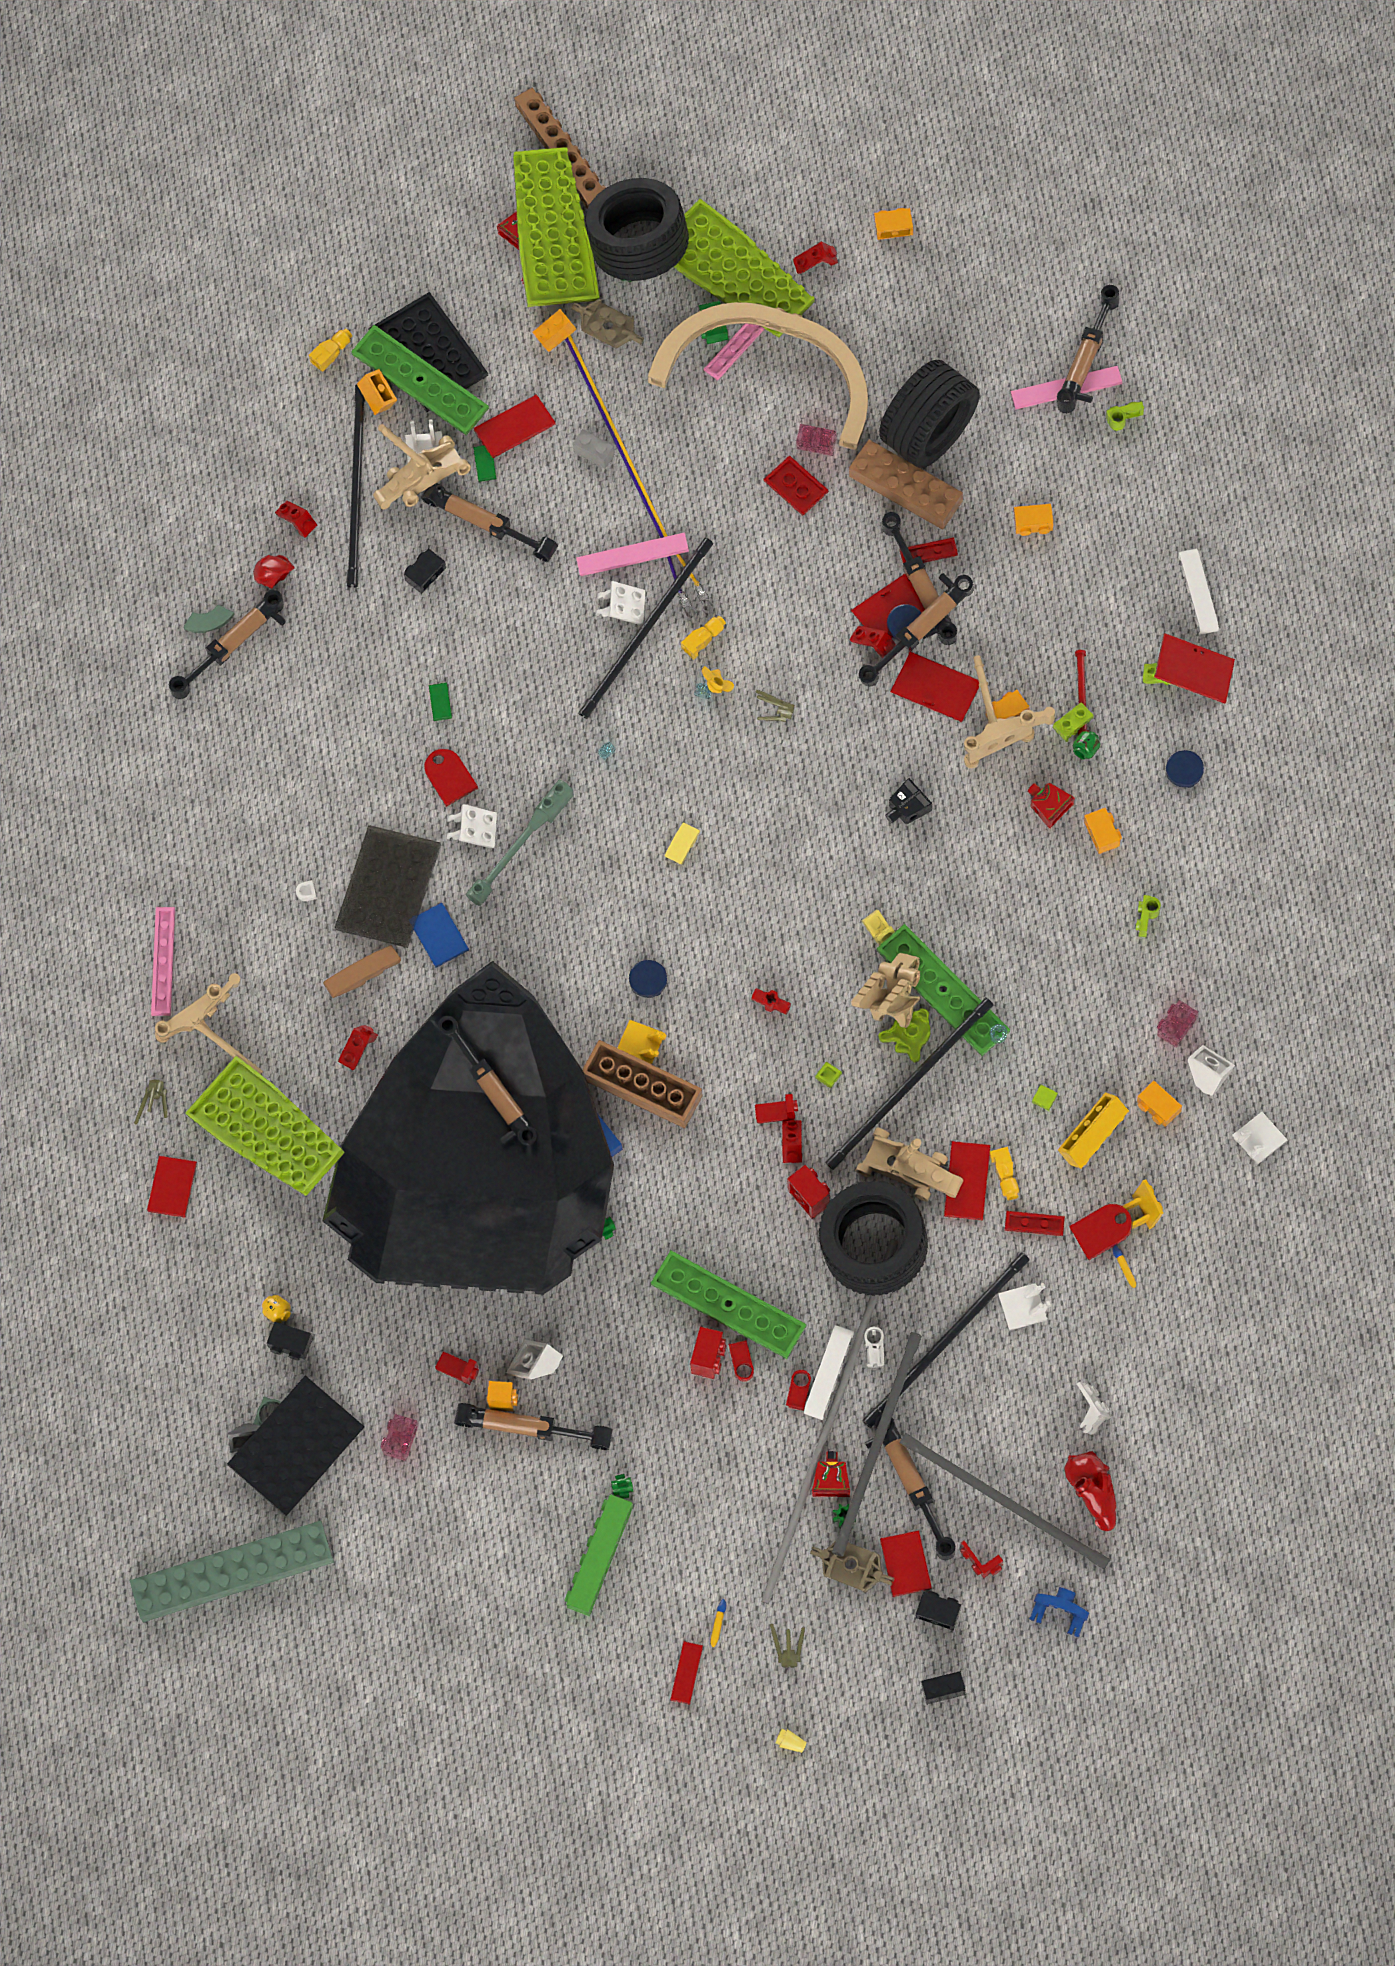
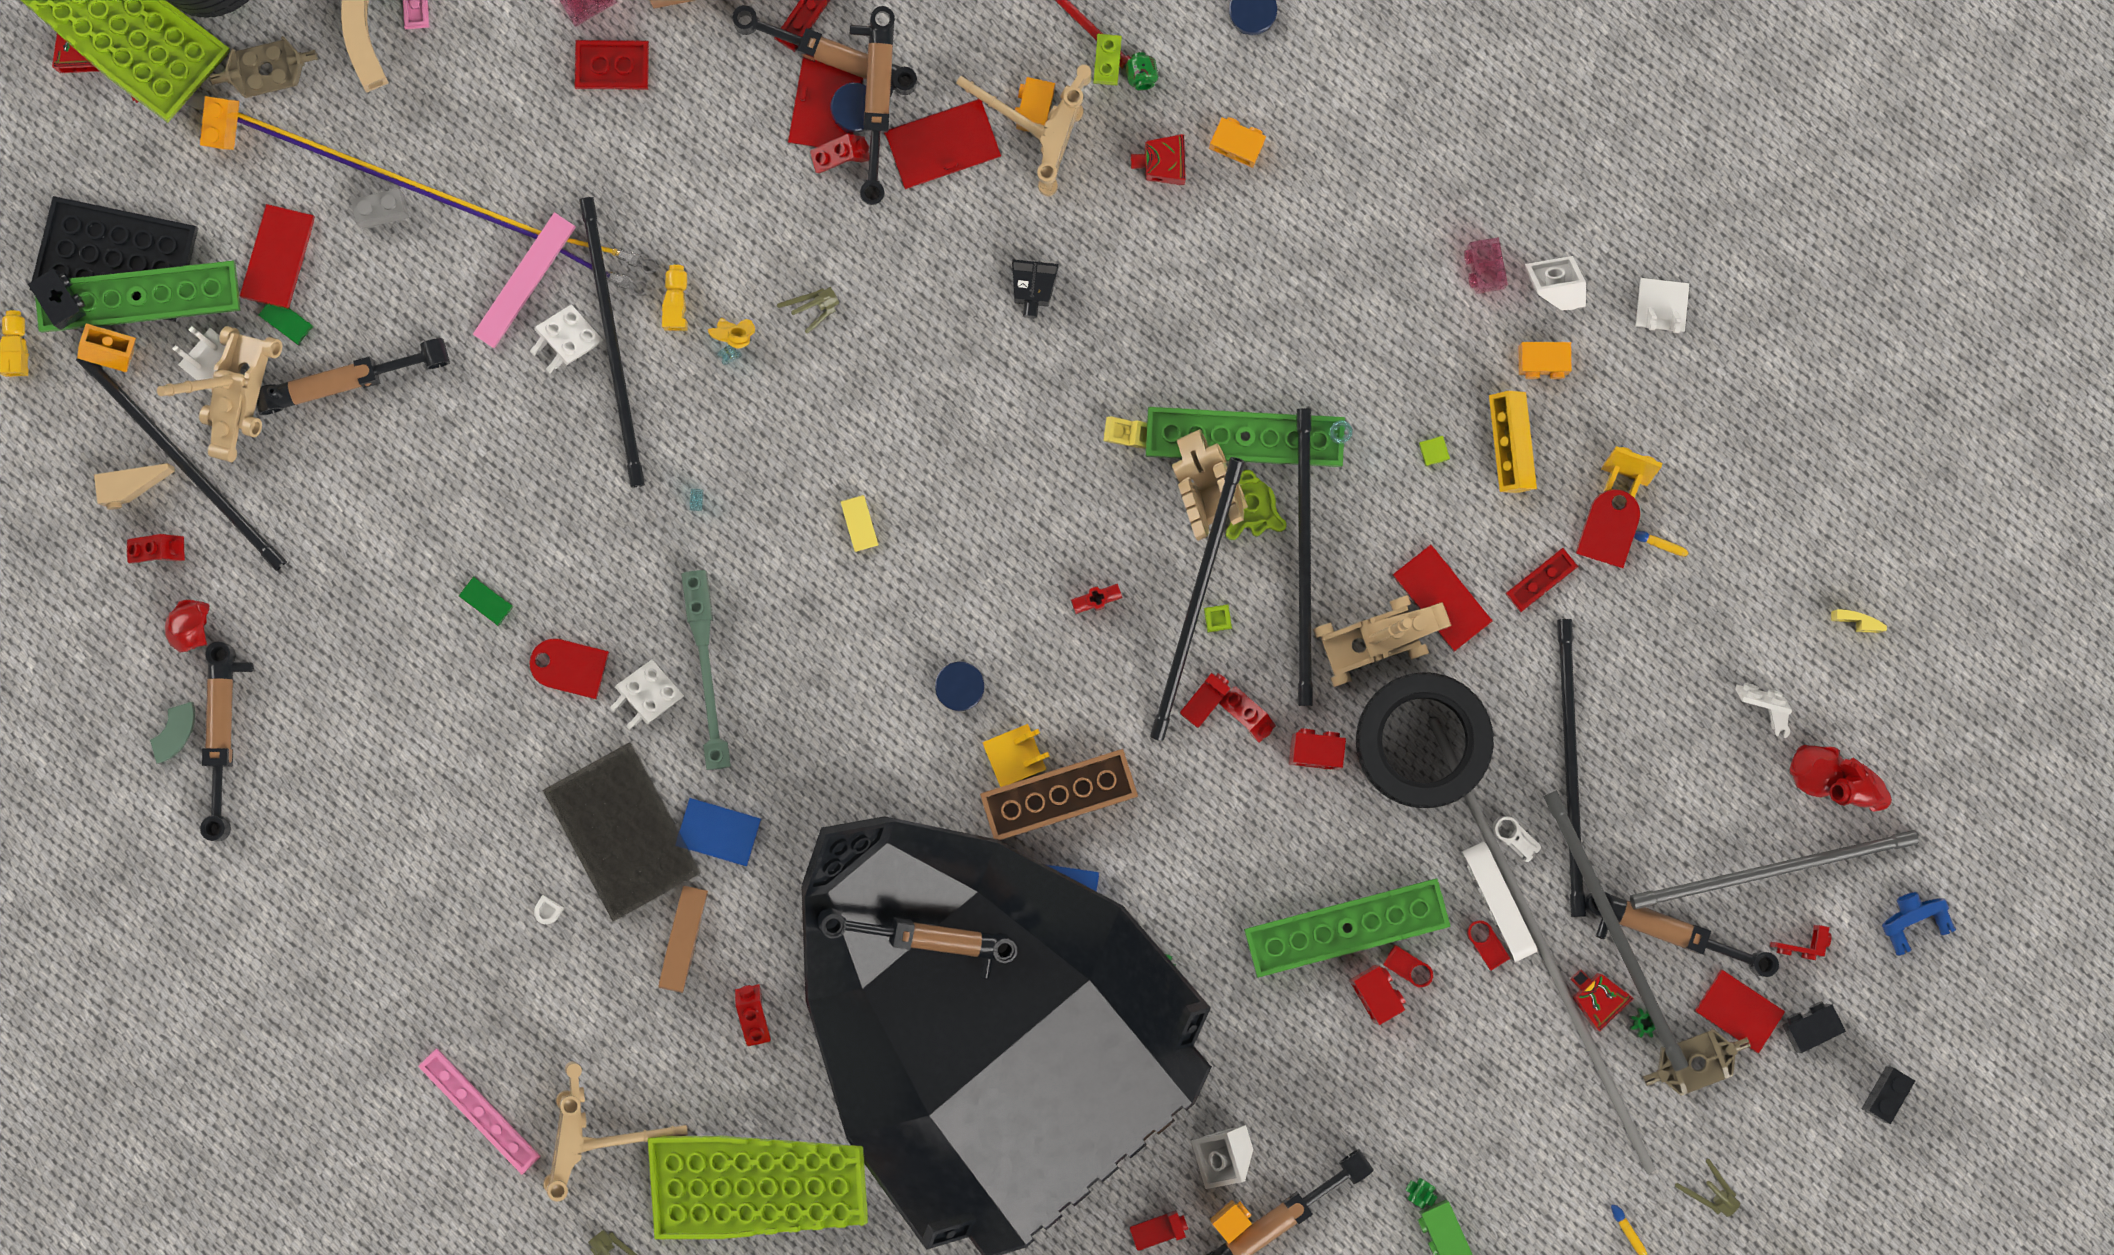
camera: 55 degrees left, 15 degrees up
(316, 472) = (126, 485): none -> tan slope
(377, 334) = (46, 291): none -> black brick
(424, 570) = (337, 485): black brick -> none
(900, 983) = (1231, 479): none -> black piece
(1004, 1170) = (1470, 557): yellow piece -> none
(1023, 1306) = (1609, 668): white plate -> none
(1142, 924) = (1362, 198): lime plate -> none
(1198, 1418) = (1863, 622): none -> light yellow slope

